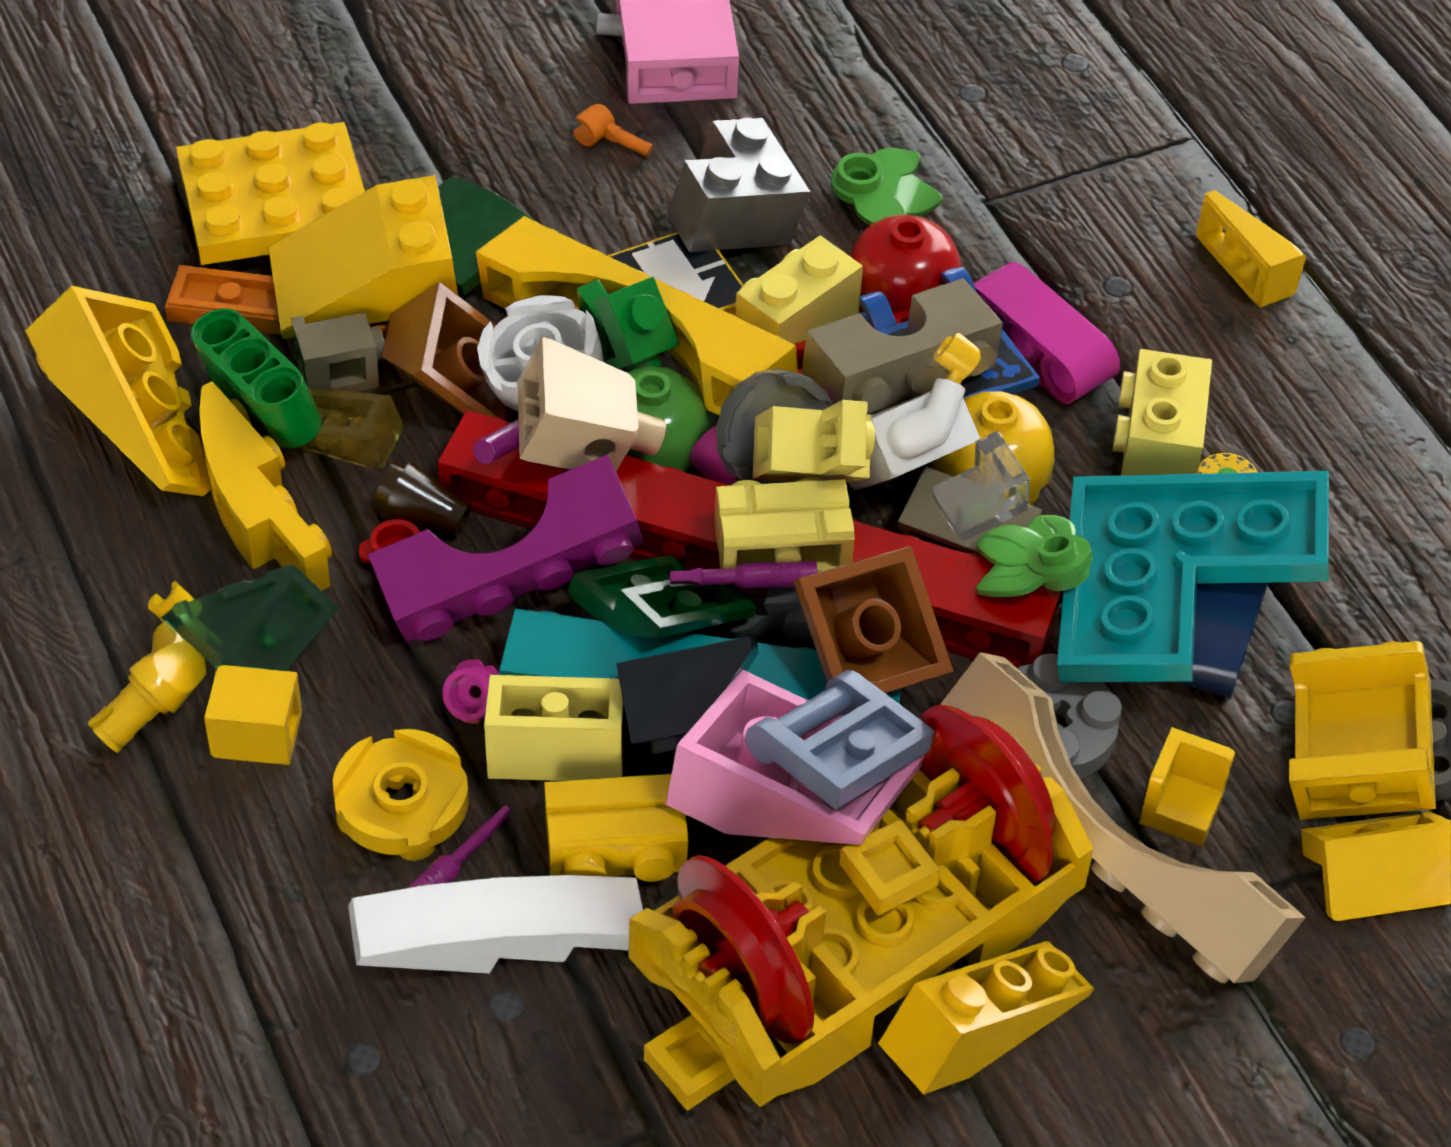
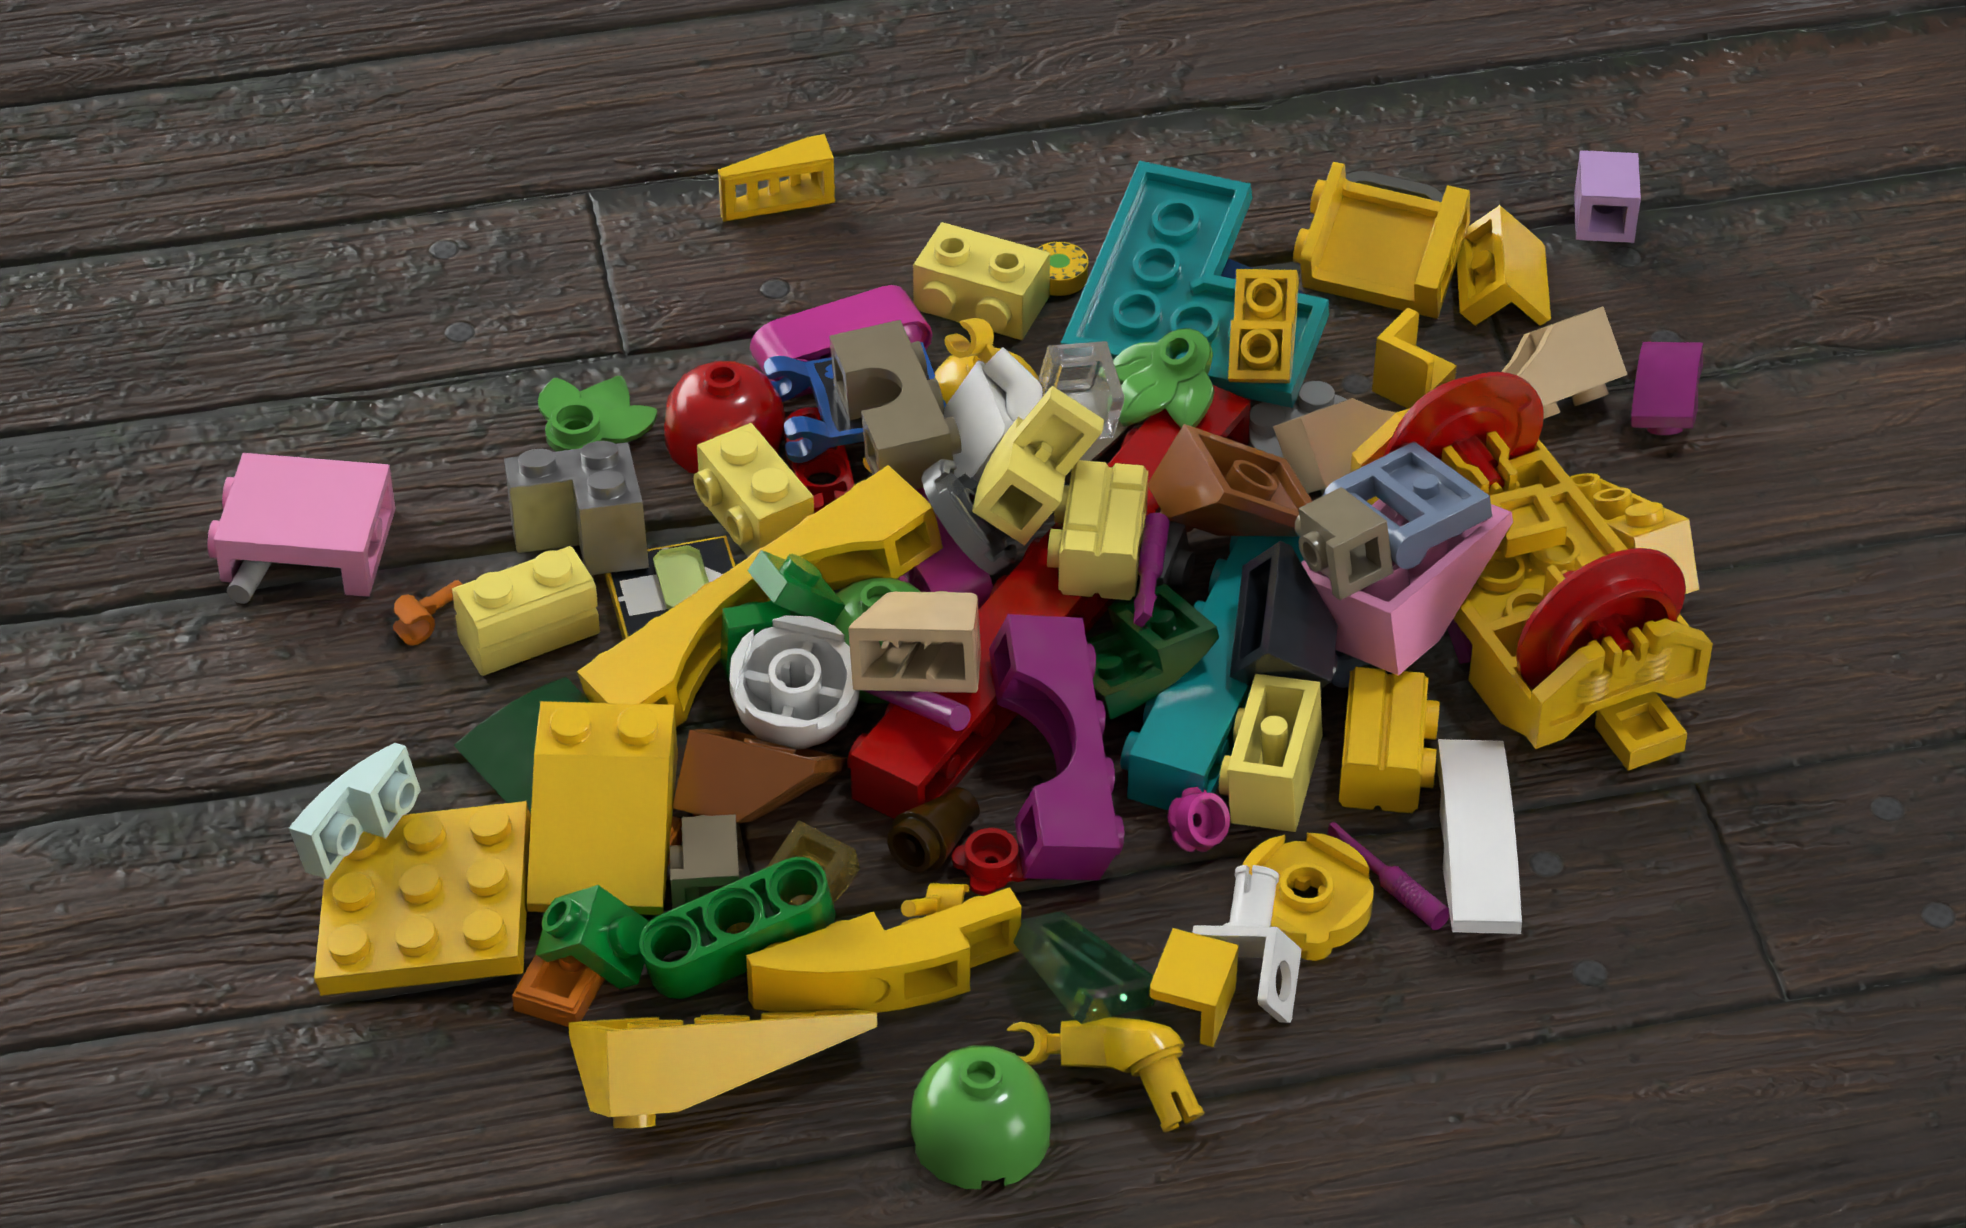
camera: 75 degrees left, 5 degrees down
(85, 587) = (980, 1117): none -> bright green cylinder
(238, 285) = (596, 932): none -> green bracket
(305, 752) = (1256, 939): none -> white bracket
(321, 107) = (364, 799): none -> light aqua slope
(329, 517) = (937, 899): none -> yellow hand
(608, 183) = (526, 610): none -> light yellow brick
(689, 272) = (679, 573): none -> yellowish green piece
(754, 683) = (1344, 542): none -> dark tan brick
(1111, 621) = (1263, 326): none -> yellow slope
(1239, 1029) = (1667, 386): none -> magenta slope

